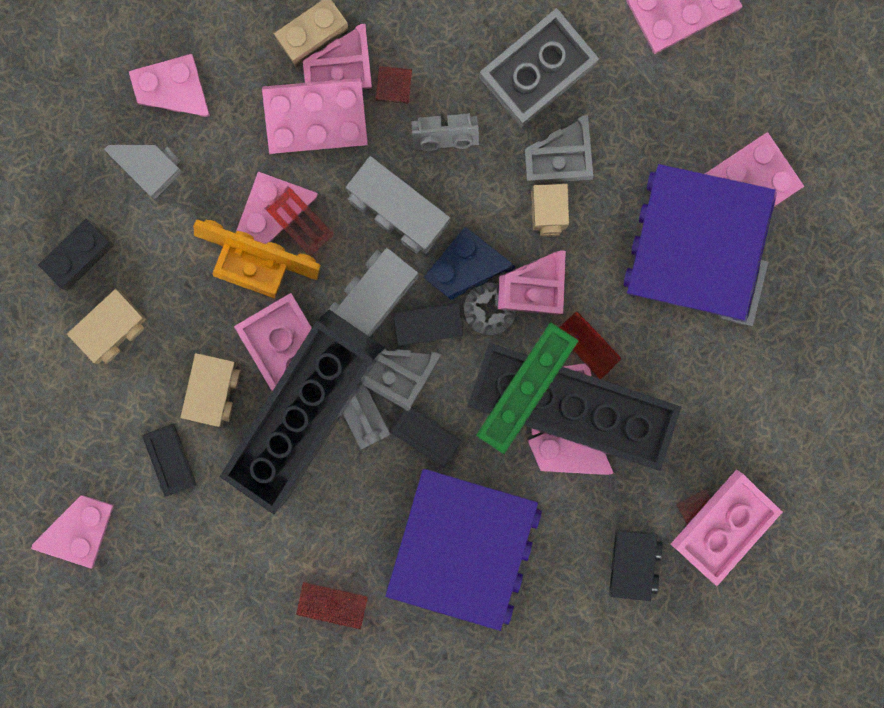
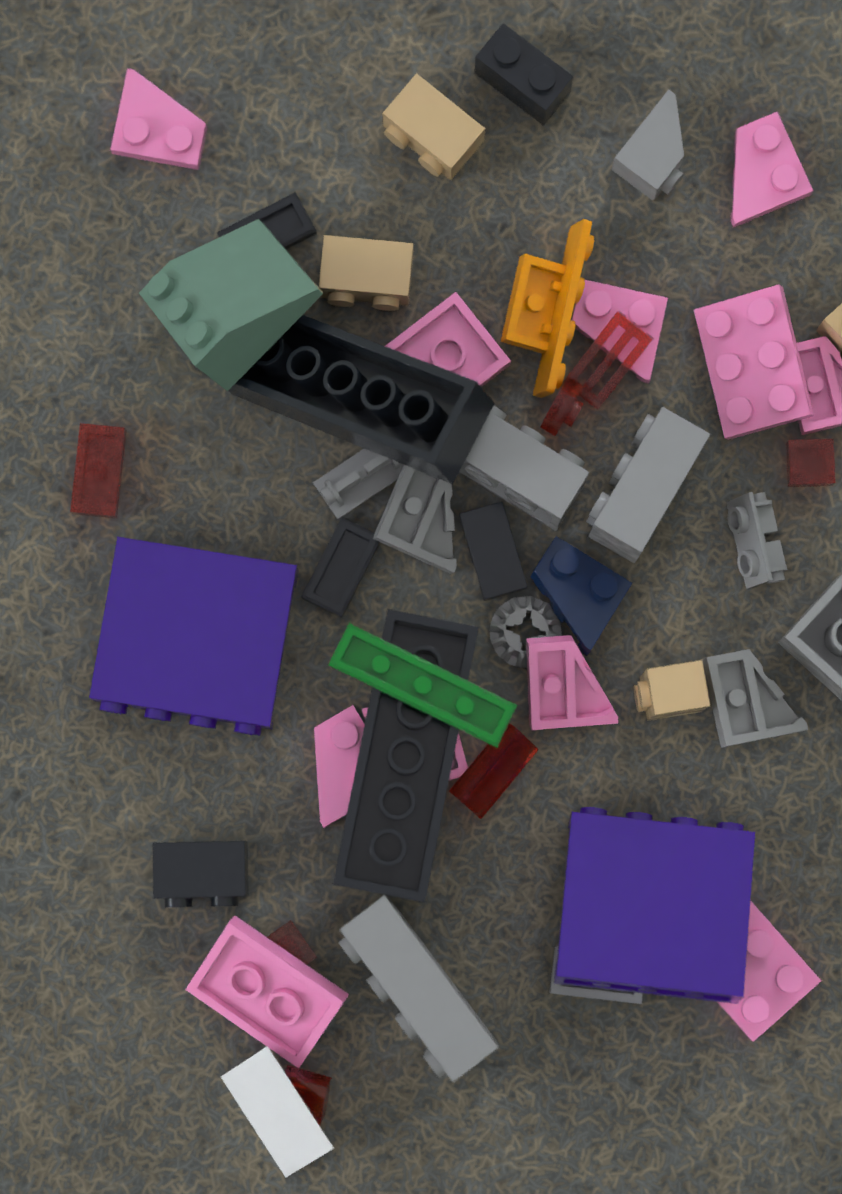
camera: 80 degrees right, 5 degrees down
(222, 492) = (231, 300): none -> sand green slope
(332, 258) = (564, 408): none -> clear red plate
(739, 418) = (419, 988): none -> light grey brick
(802, 510) = (312, 1089): none -> clear red plate
(811, 531) = (277, 1112): none -> white sticker

